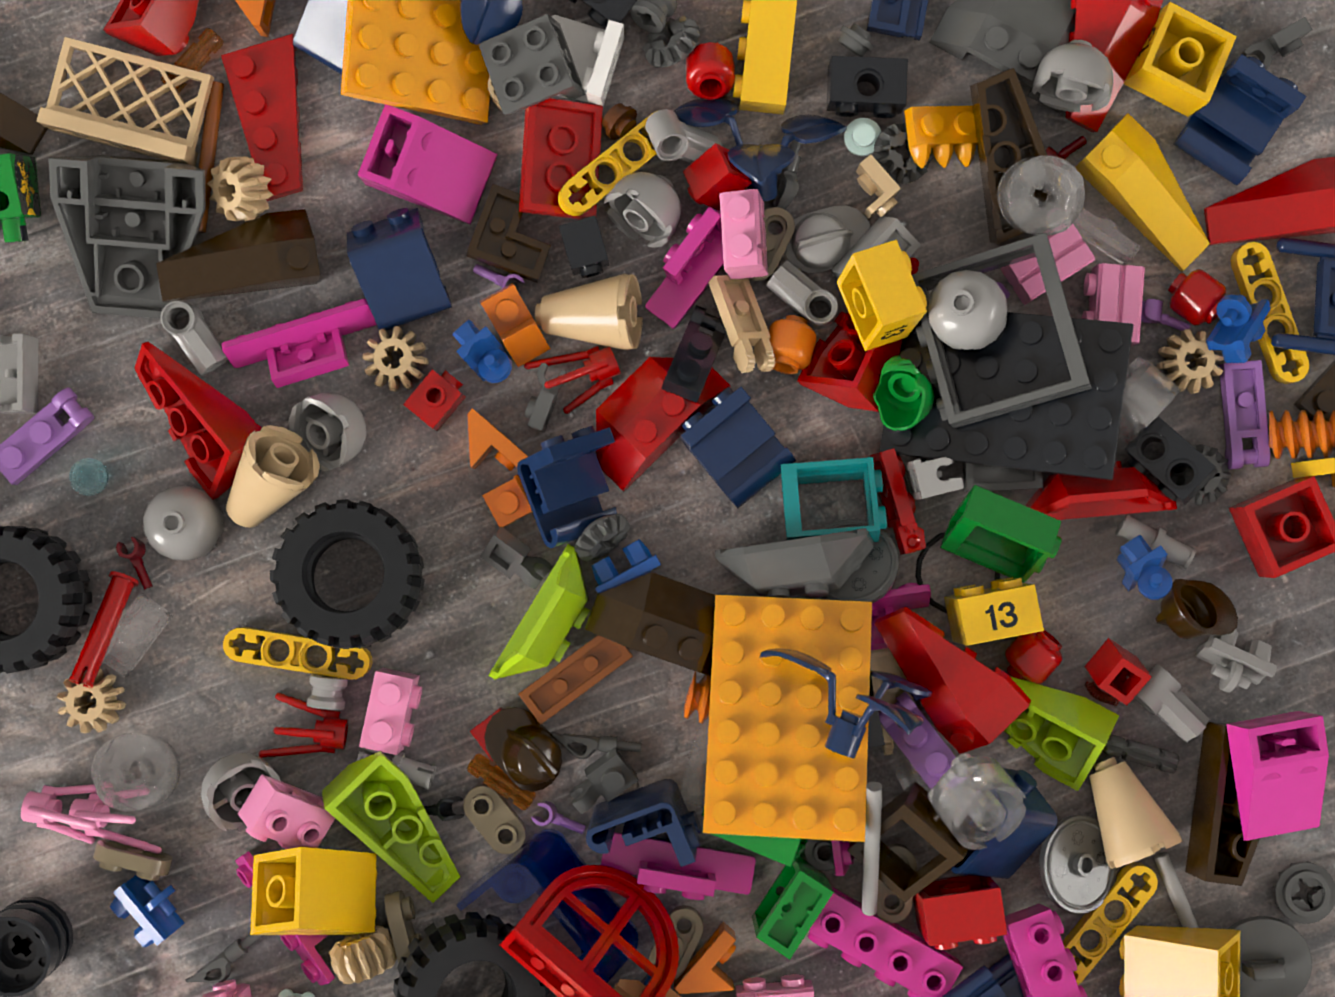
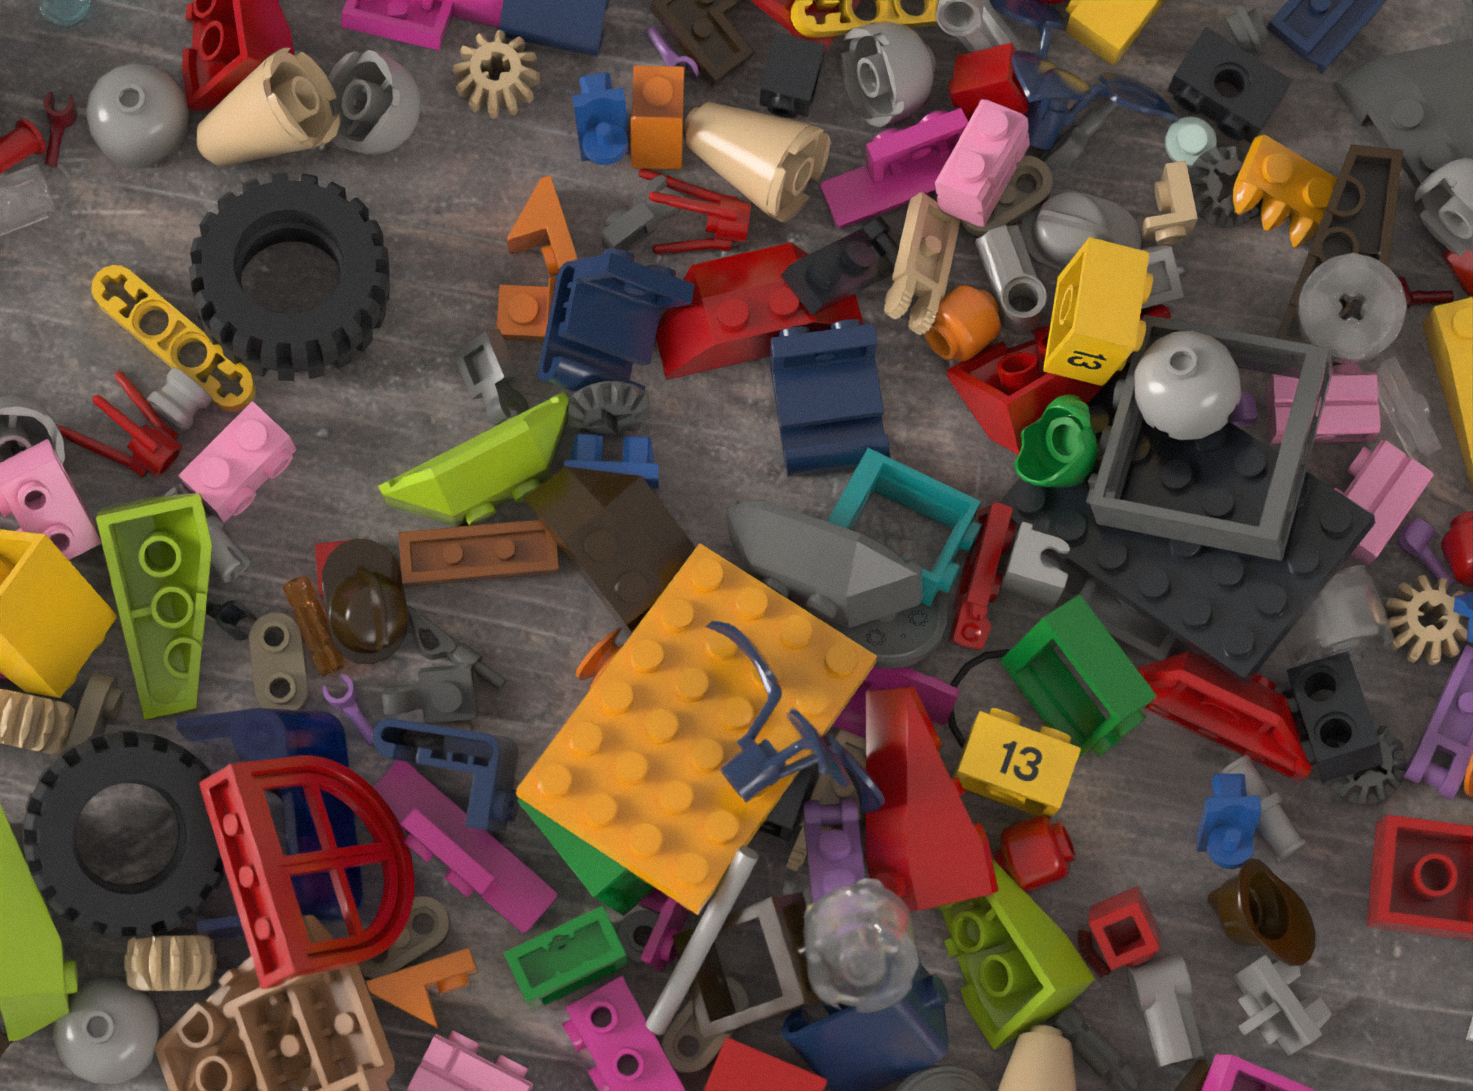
camera: 30 degrees right, 10 degrees down
(436, 398) = (514, 145): red brick -> none

